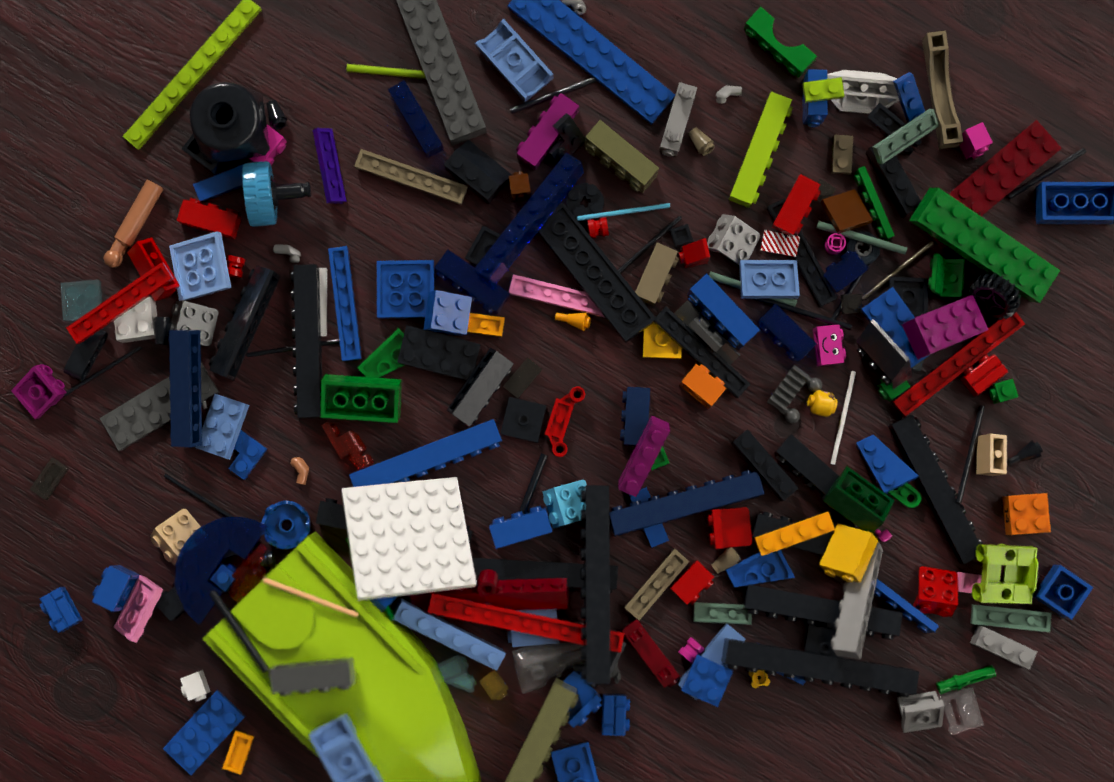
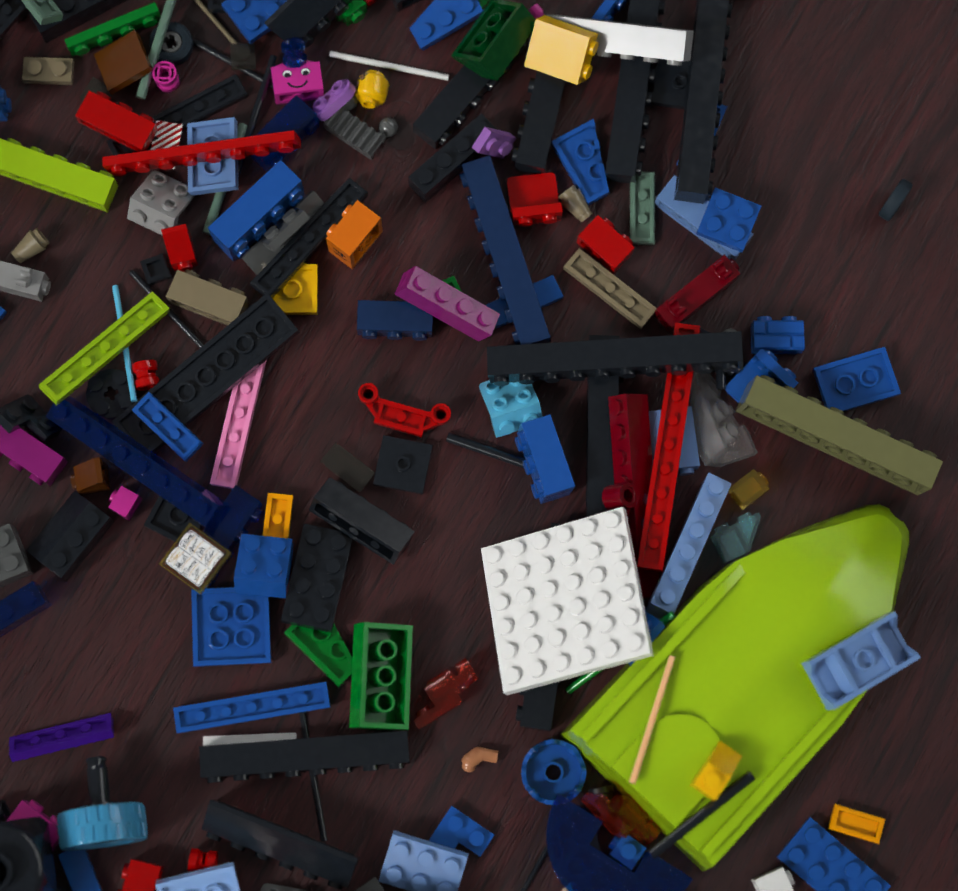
camera: 100 degrees left, 5 degrees down
(268, 643) = (716, 771): none -> yellow slope
(289, 250) = (179, 787): light grey arm -> none
(312, 675) = (755, 709): dark grey brick -> none
(411, 176) = (77, 625): dark tan plate -> none
(430, 456) = (455, 584): blue brick -> none
(453, 262) = (195, 558): none -> tile
(500, 211) = (124, 502): none -> dark pink plate
(555, 243) = (167, 426): none -> blue tile
(578, 320) = (270, 396): light orange cone -> none
(617, 196) = (104, 348): none -> lime plate
(621, 157) = (51, 343): olive brick -> none
(691, 650) = (691, 243): dark pink wheel -> none
(759, 682) = (724, 155): yellow plate -> none
(769, 275) = (210, 151): none -> red plate
(774, 497) = (494, 142): none -> medium lavender plate
(794, 533) = (539, 117): light orange plate -> none
(813, 373) = (334, 99): none -> medium lavender plate
(846, 271) = (200, 60): clear blue brick -> none
(850, 342) = (294, 52): none -> clear blue wheel

